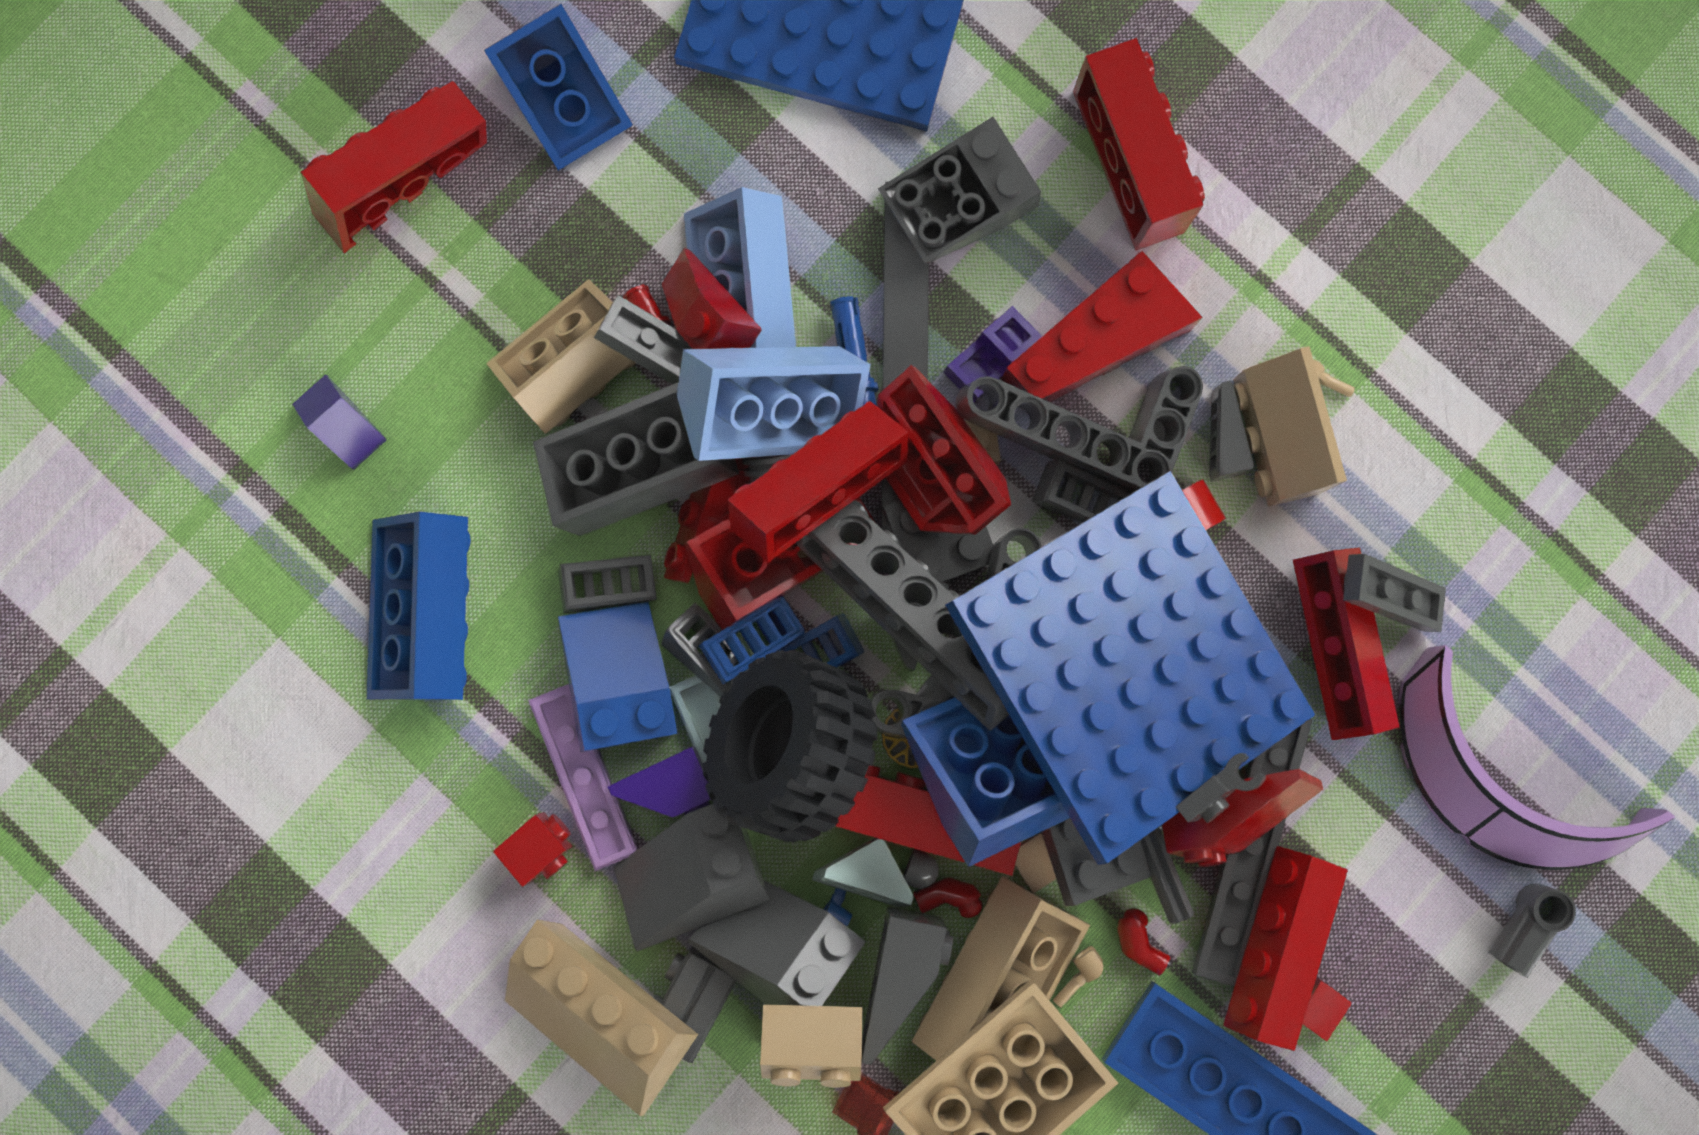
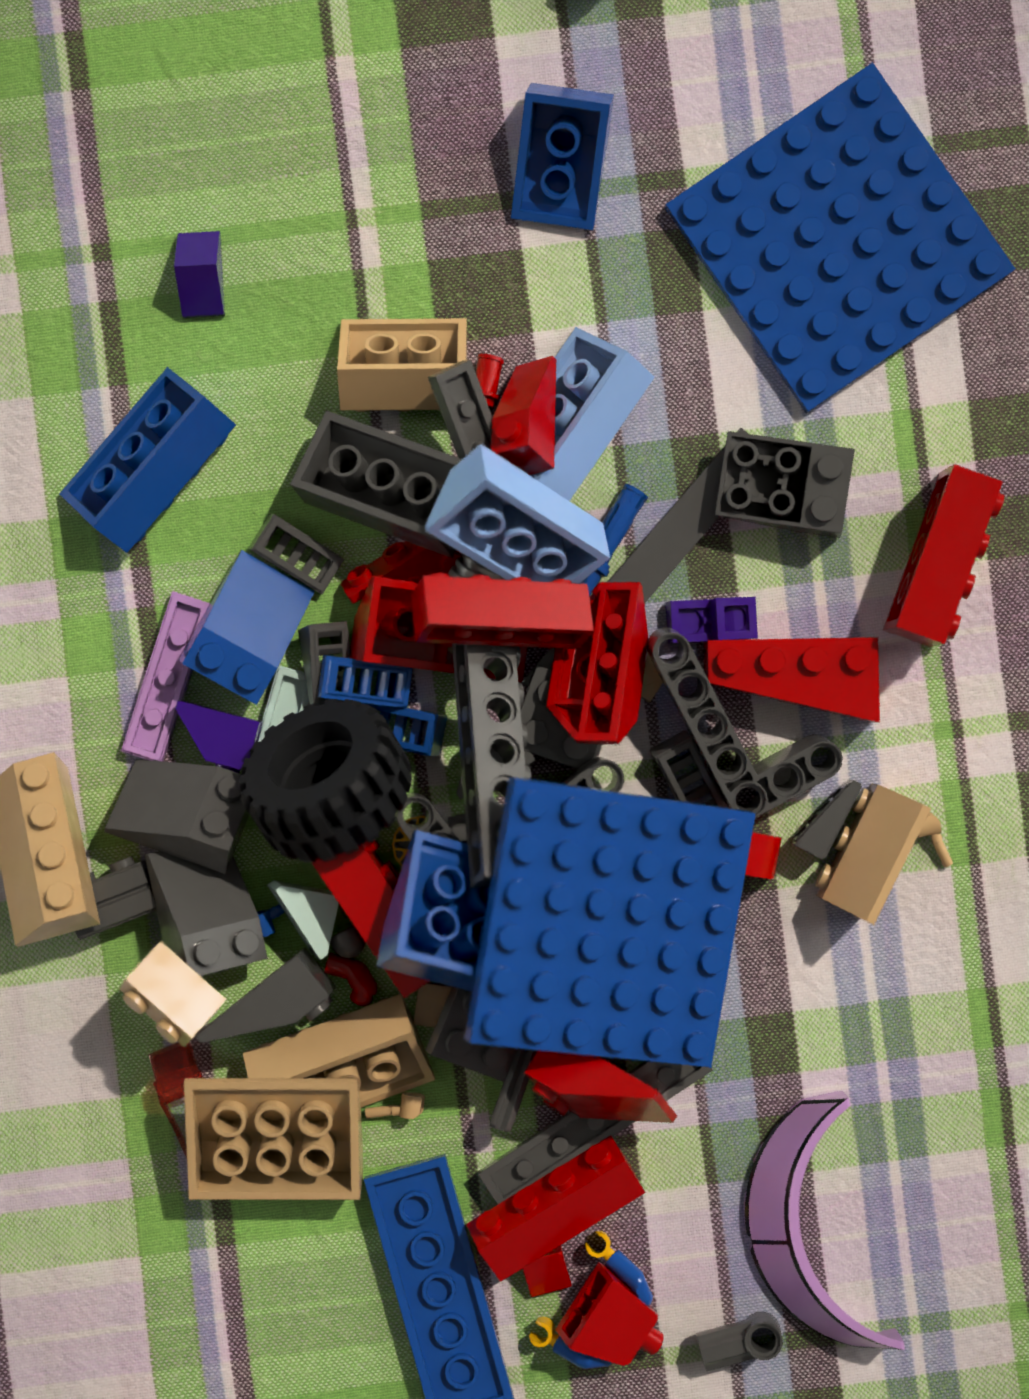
camera: 40 degrees right, 5 degrees up
(392, 162) = (394, 115): red wedge -> none
(535, 849) = (92, 701): red brick -> none
(1135, 942) = (456, 1117): red arm -> none
(1209, 798) = (580, 1060): dark grey plate -> none
(1344, 649) = (781, 1038): red brick -> none
(1394, 593) = (845, 1032): dark grey plate -> none
(1407, 1003) = (607, 1317): none -> red torso

